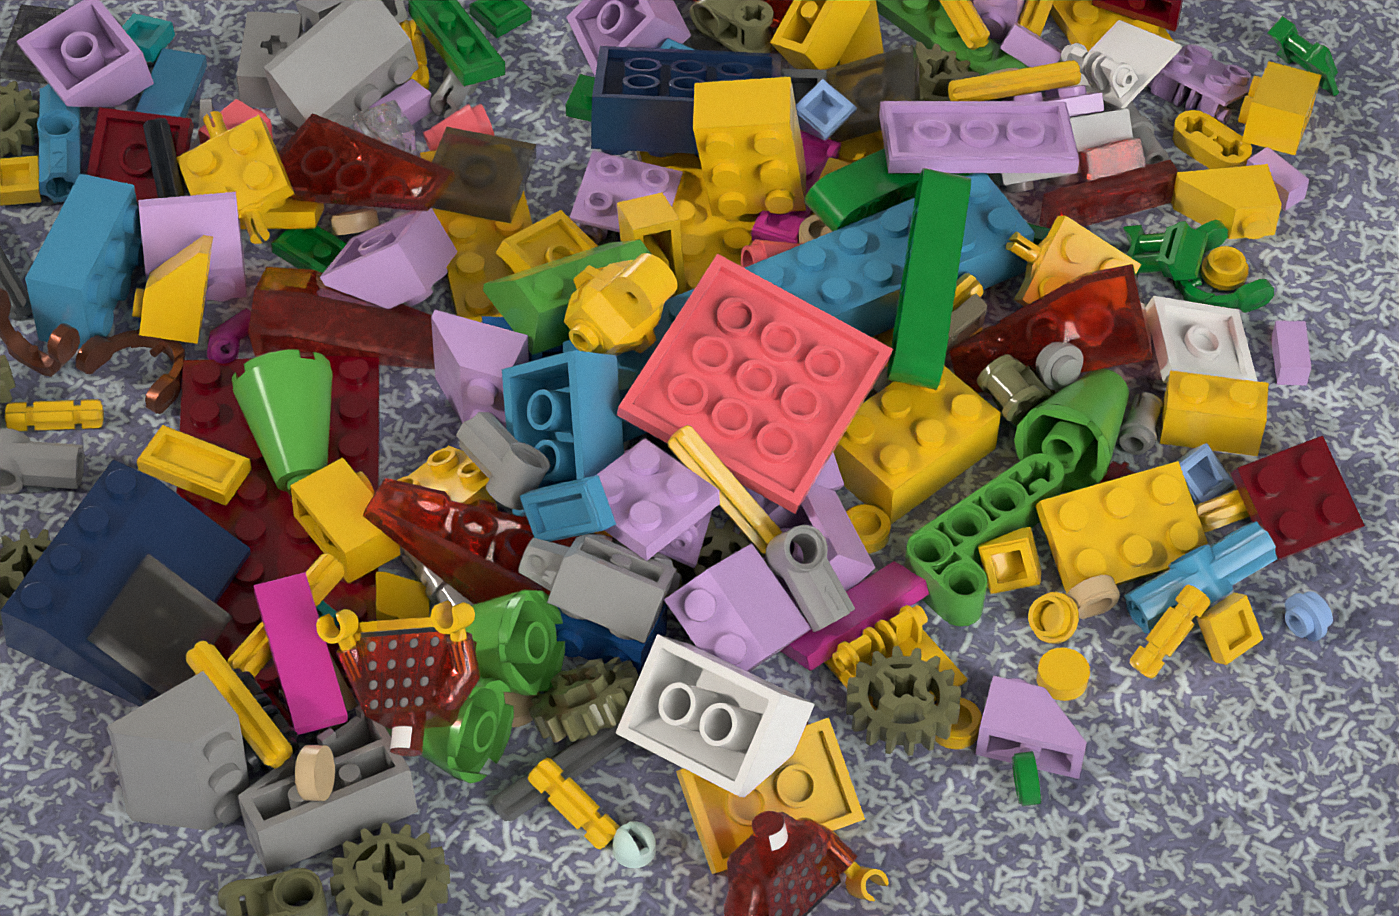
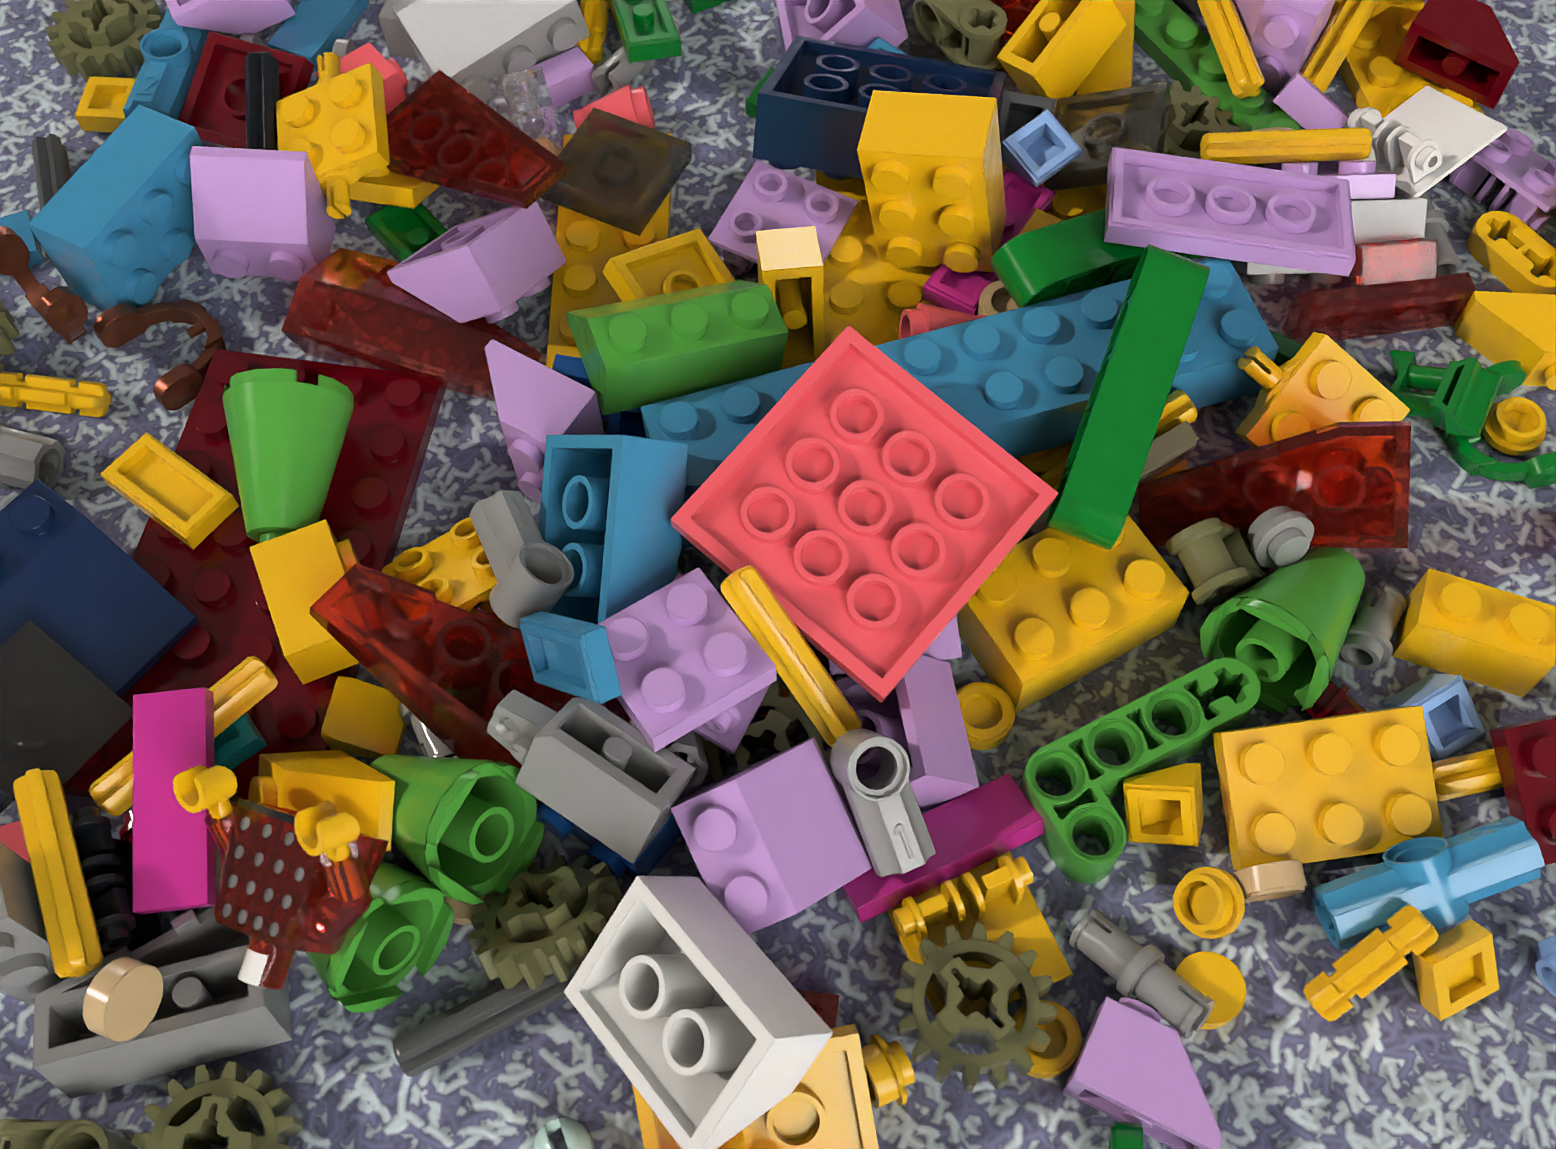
camera: 15 degrees right, 10 degrees up
(176, 295) = (222, 270): yellow slope -> none
(225, 338) = (266, 337): magenta arm -> none
(354, 221) = (461, 207): tan tile -> none
(573, 803) = (491, 1076): yellow axle -> none
(619, 305) = (702, 378): yellow piece -> none
(855, 754) = (887, 1071): none -> yellow plate
(1013, 663) = (1141, 973): none -> light grey pin
(1199, 339) = (1471, 527): white plate -> none

